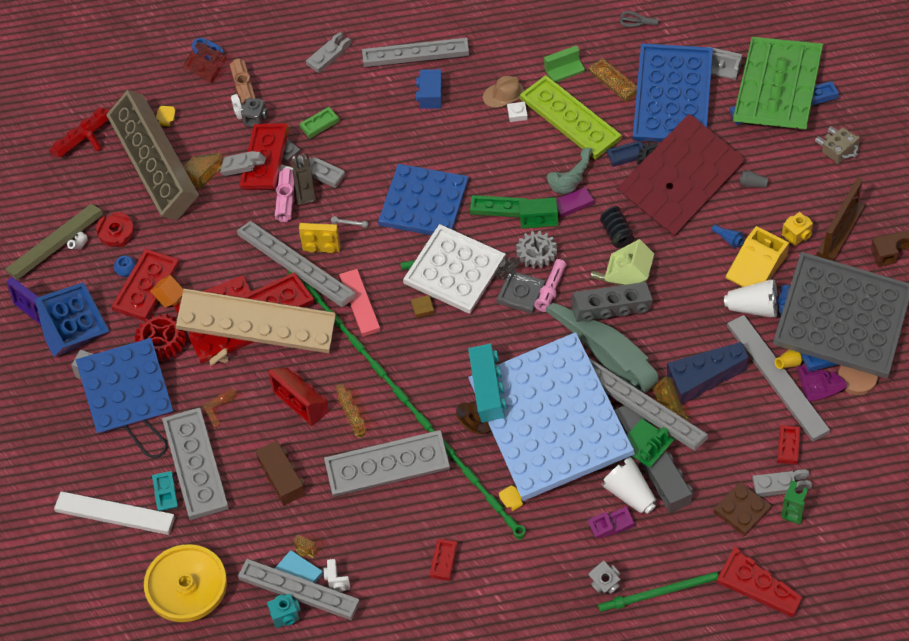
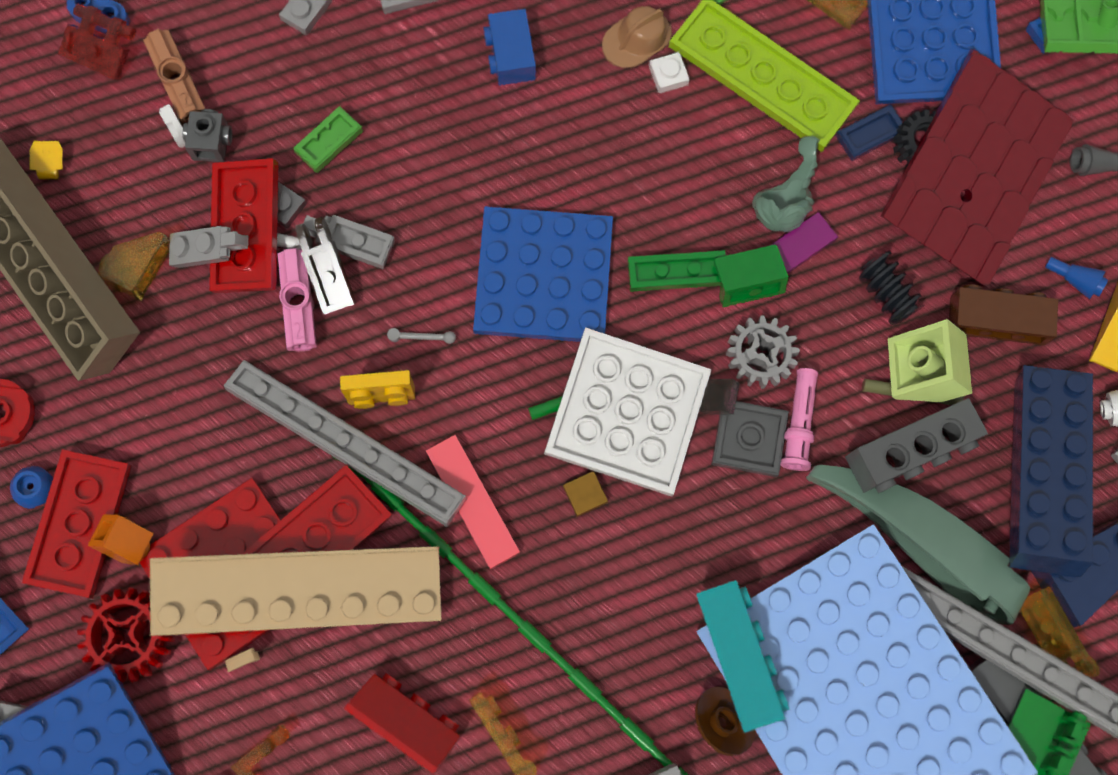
camera: 20 degrees left, 20 degrees up
(679, 248) = (1004, 315): none -> reddish brown brick
(681, 318) = (1052, 472): none -> dark blue brick

